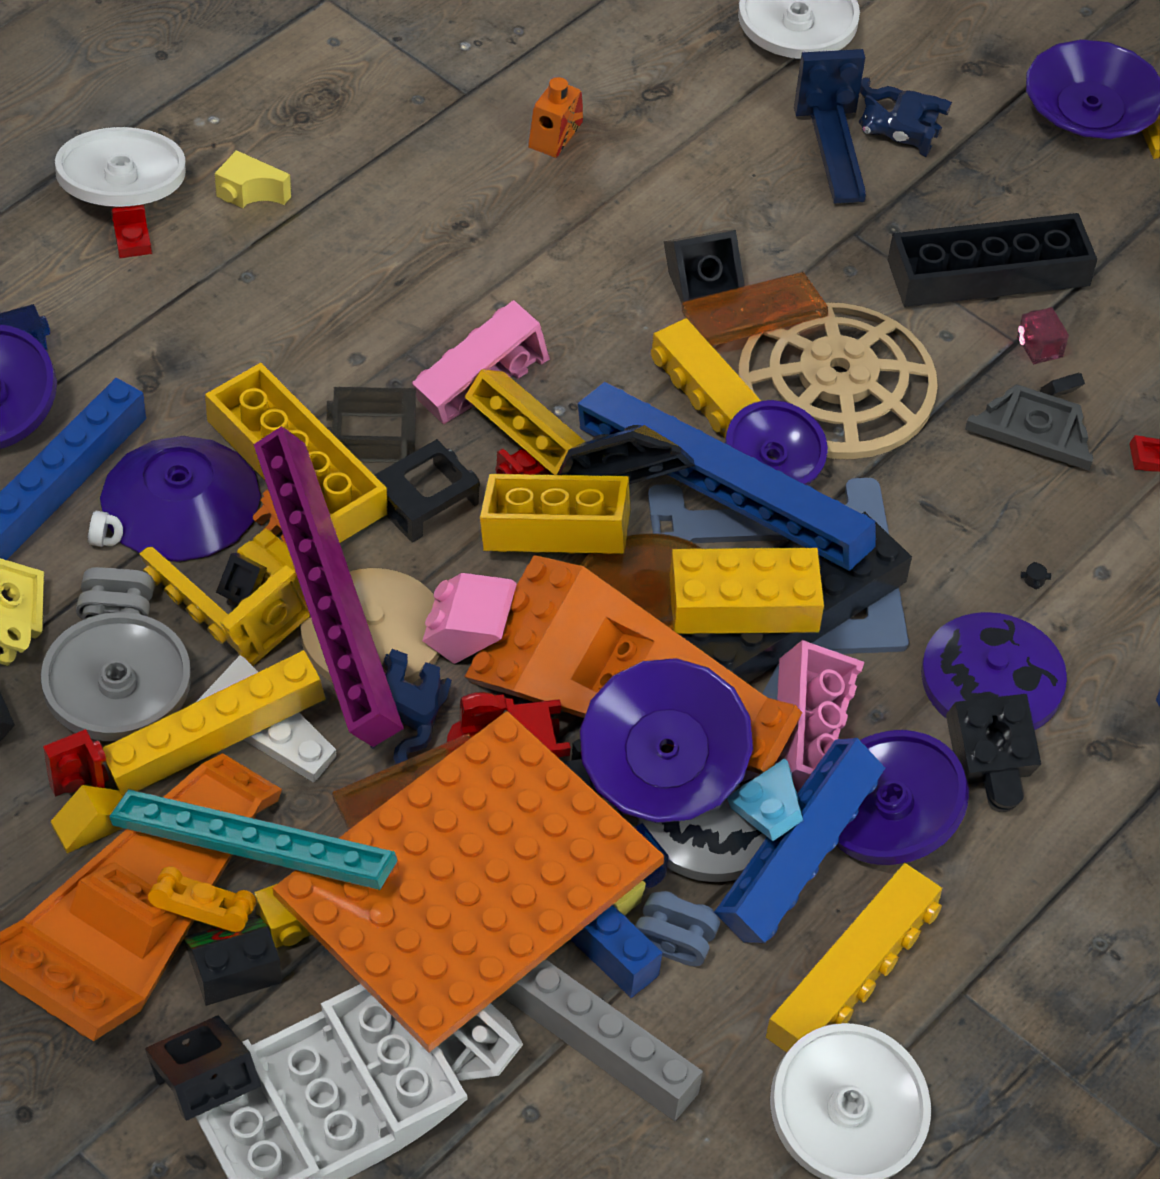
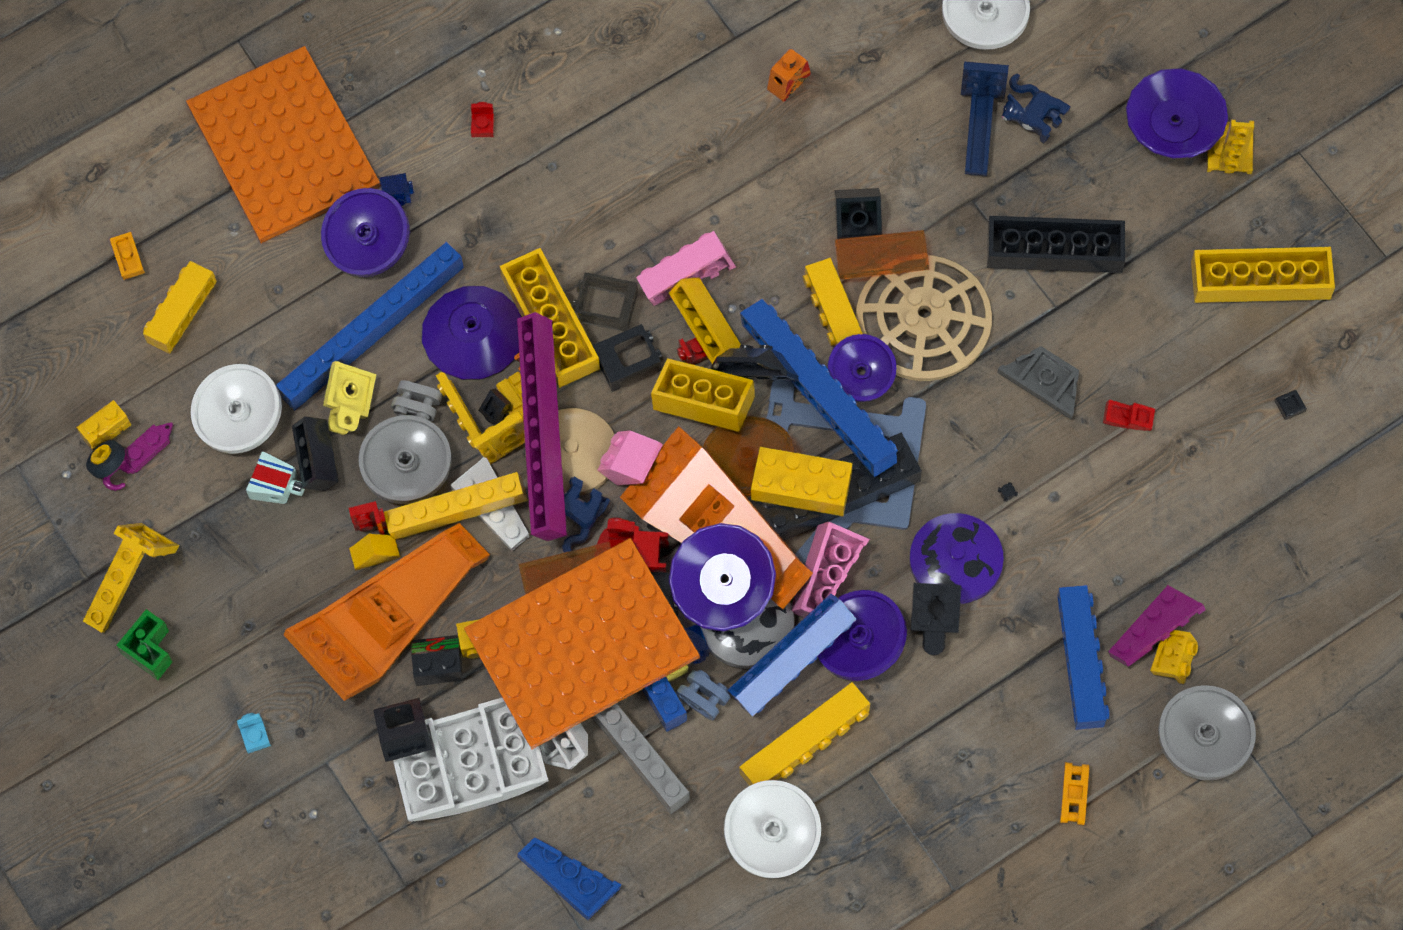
camera: 20 degrees right, 15 degrees up
(99, 527) = (416, 348): white tile -> none
(120, 166) = (483, 68): white dish -> none
(201, 900) = (424, 623): light orange plate -> none
(250, 180) = (567, 91): light yellow arch -> none
(254, 839) = (459, 593): teal tile -> none
(769, 801) = (777, 628): medium azure wing -> none
(1042, 335) = (1072, 309): clear pink brick -> none
(1063, 385) = (1072, 352): black tile -> none

